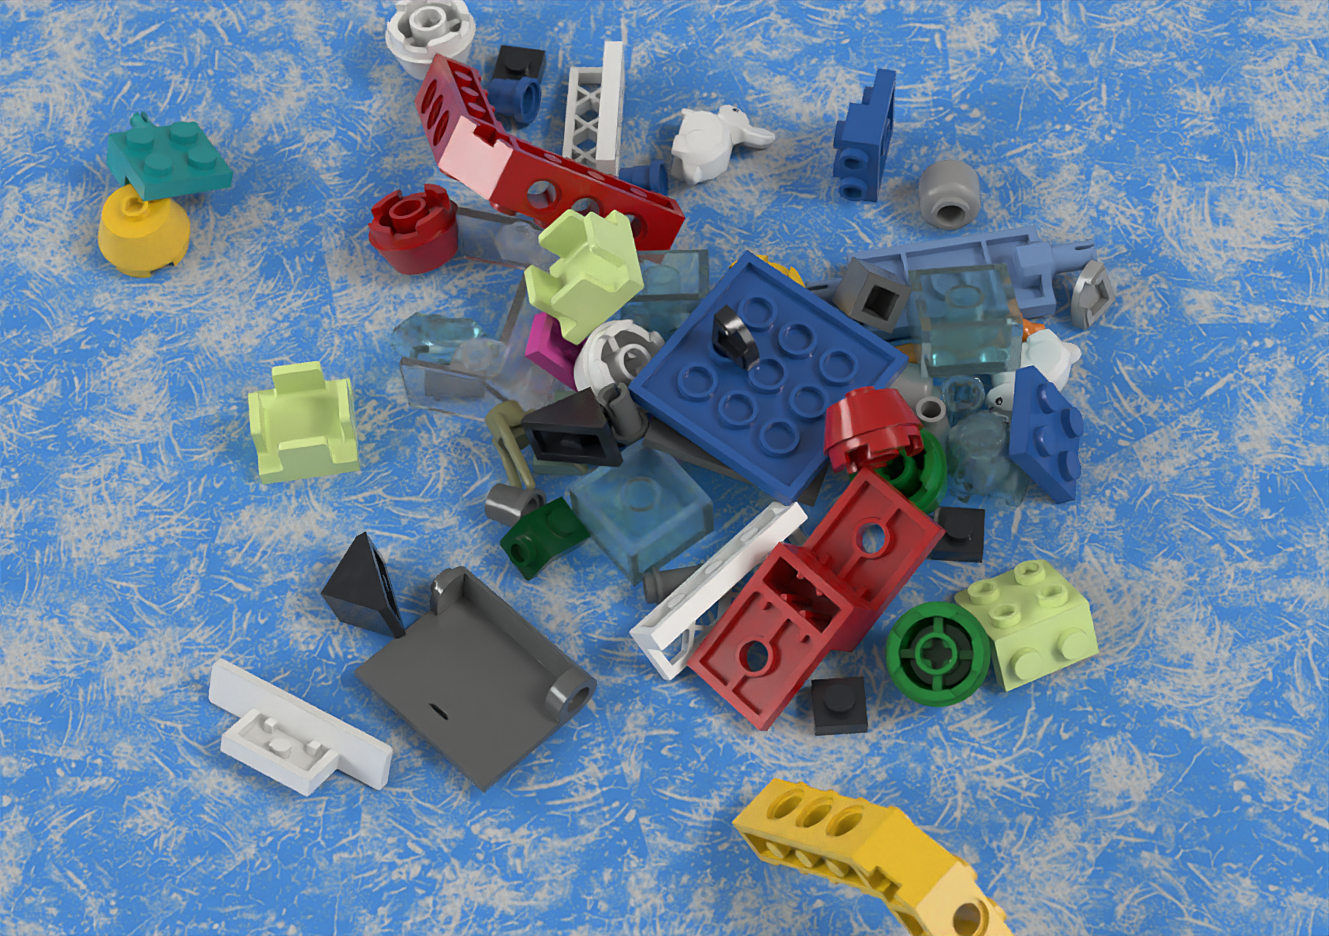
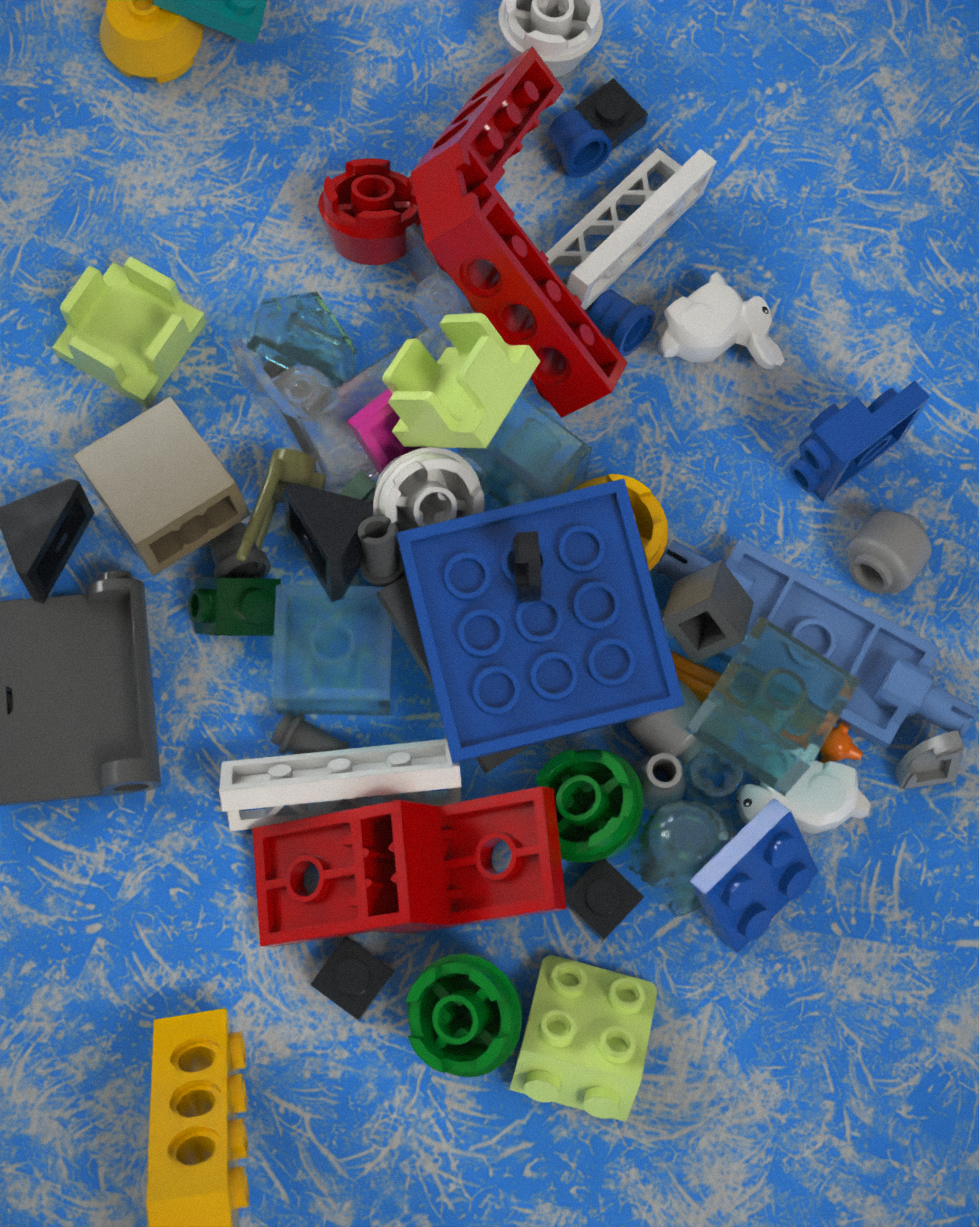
camera: 30 degrees right, 15 degrees up
(429, 491) = (162, 485): none -> dark tan brick
(870, 429) = (571, 760): red cone -> none

